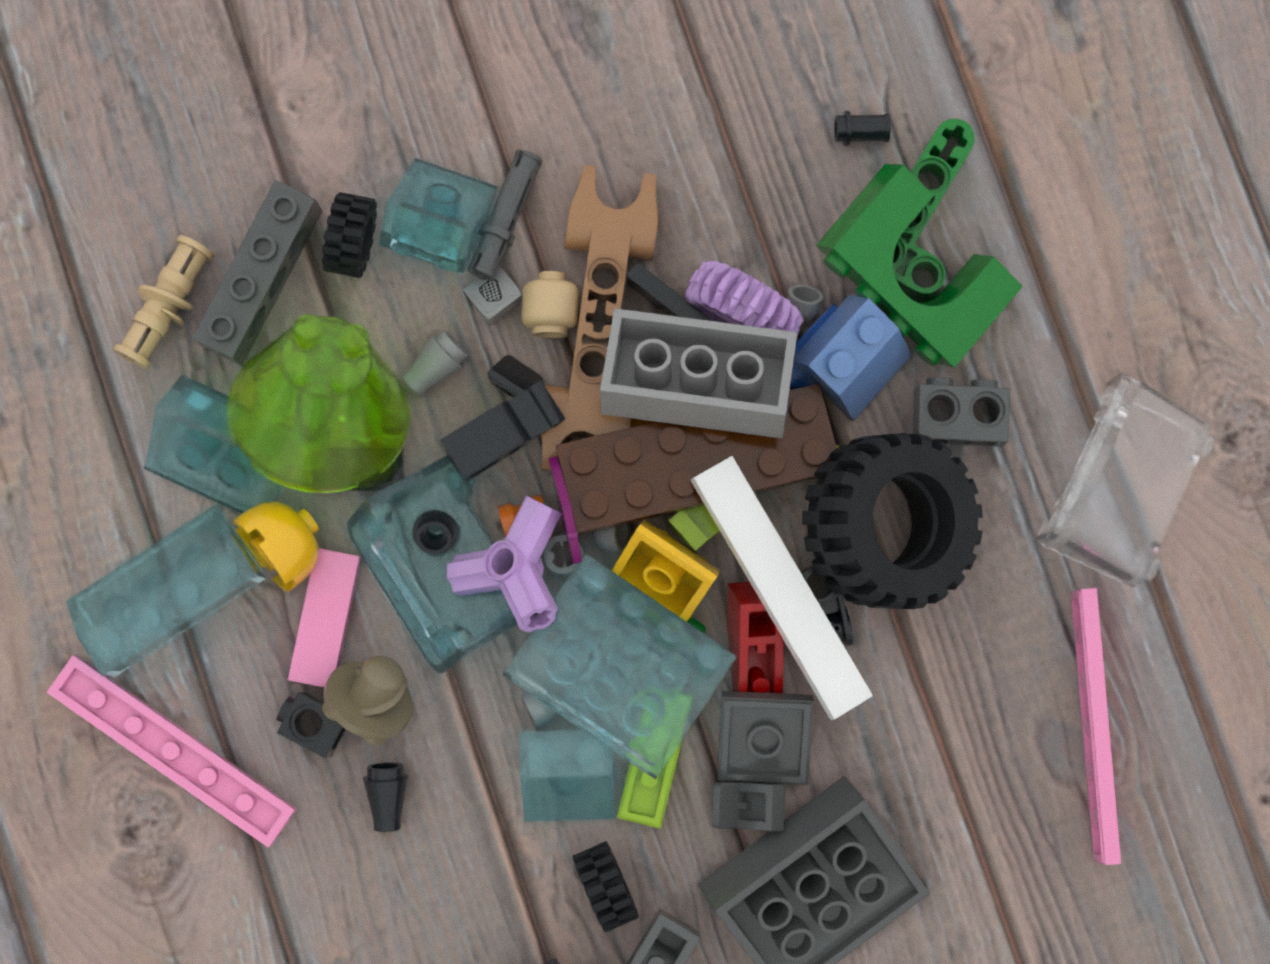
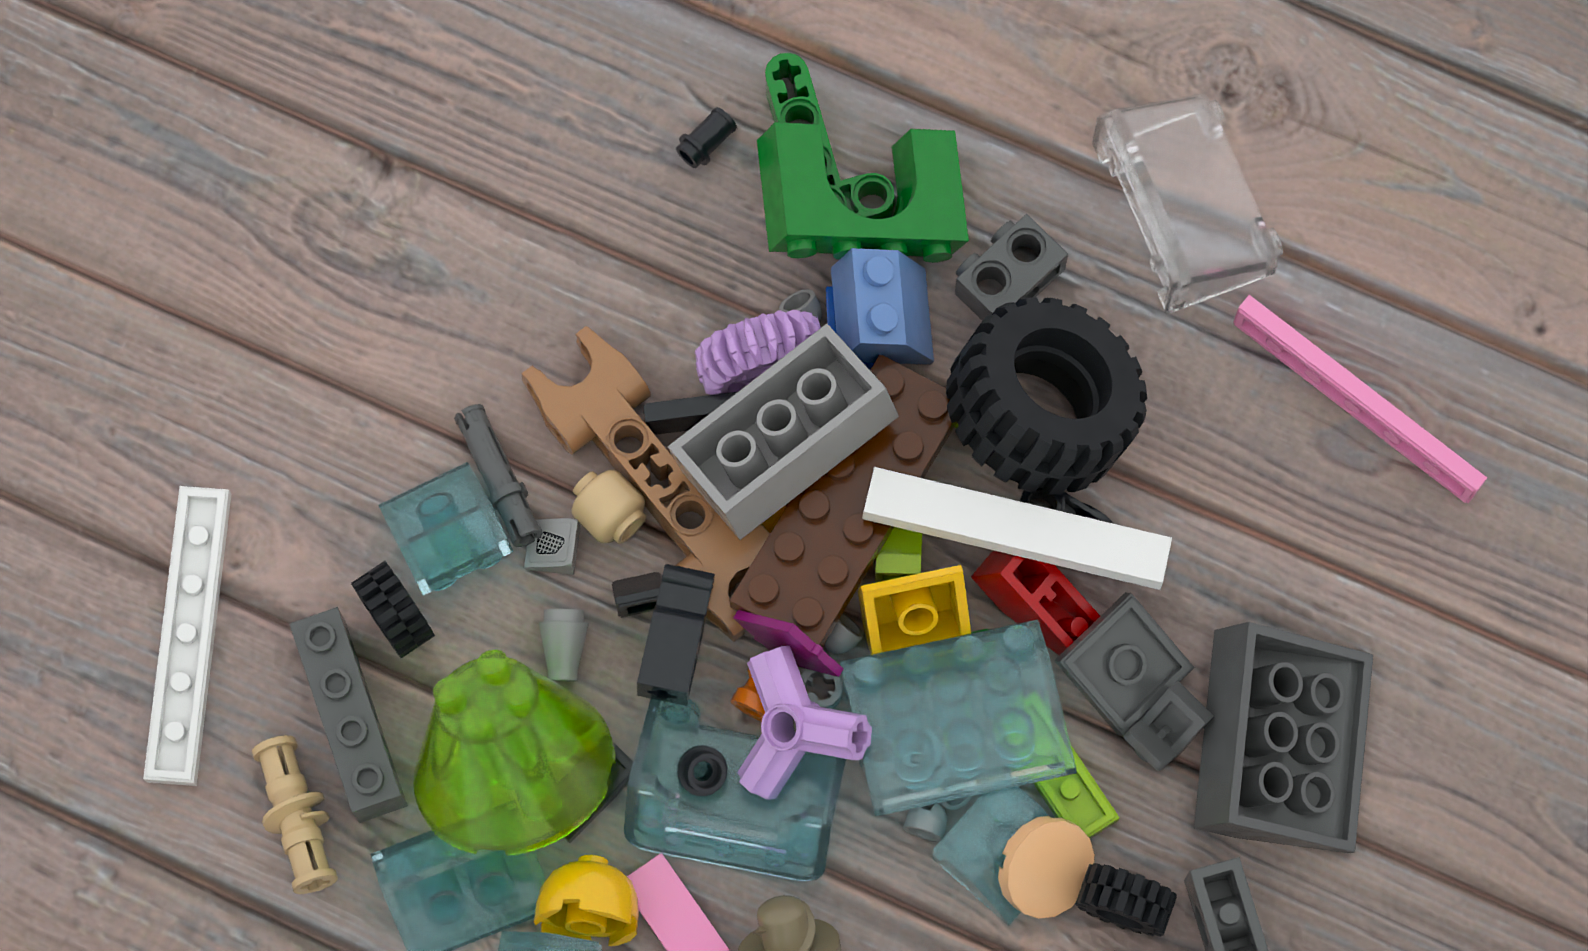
camera: 45 degrees left, 10 degrees down
(218, 122) = (187, 636): none -> white tile
(579, 813) = (1045, 866): none -> light nougat tile

